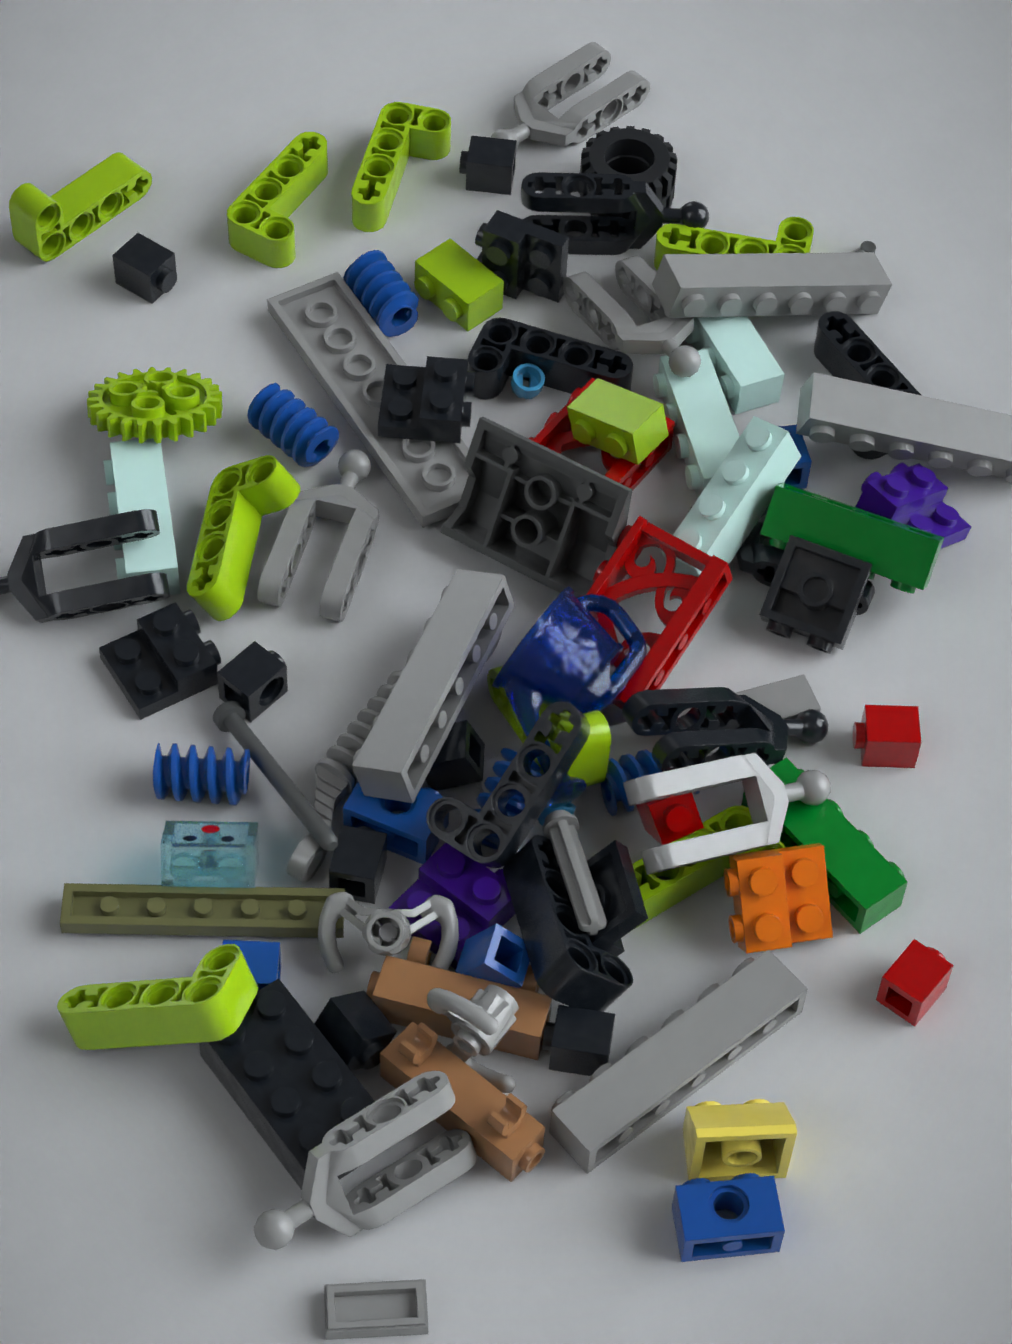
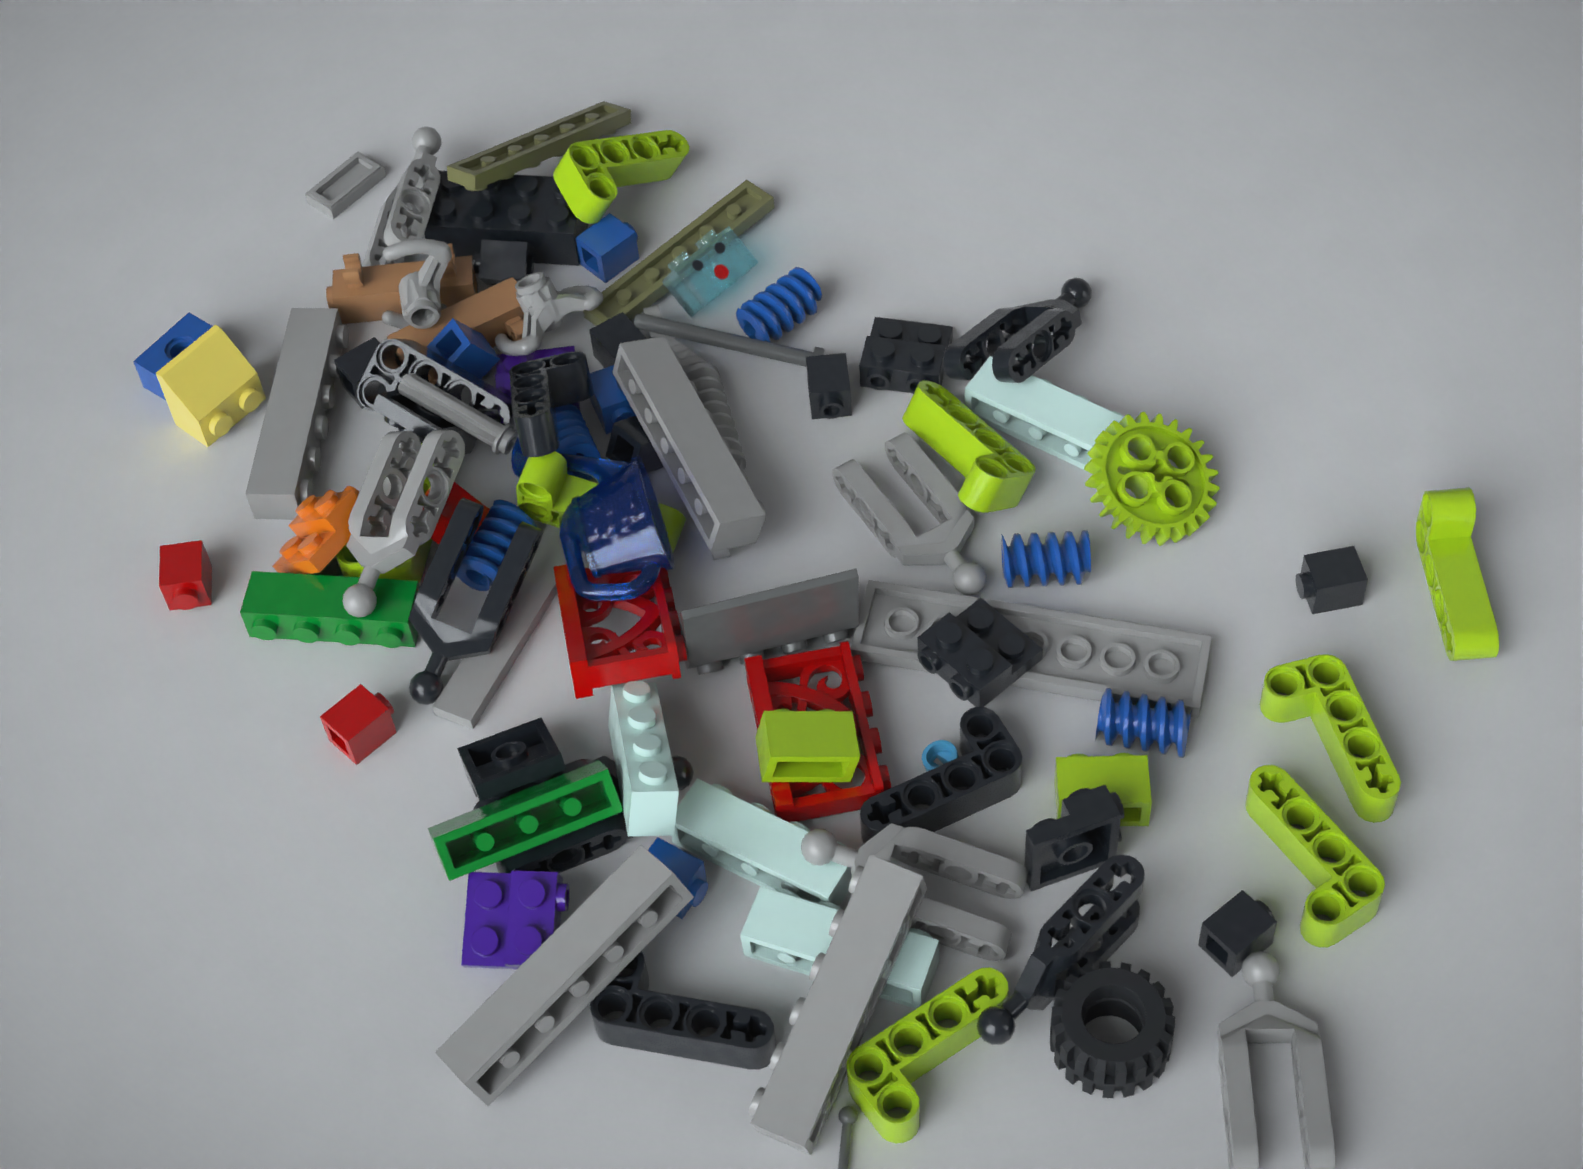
camera: 140 degrees right, 0 degrees up
(191, 1102) = (537, 146): none -> olive plate

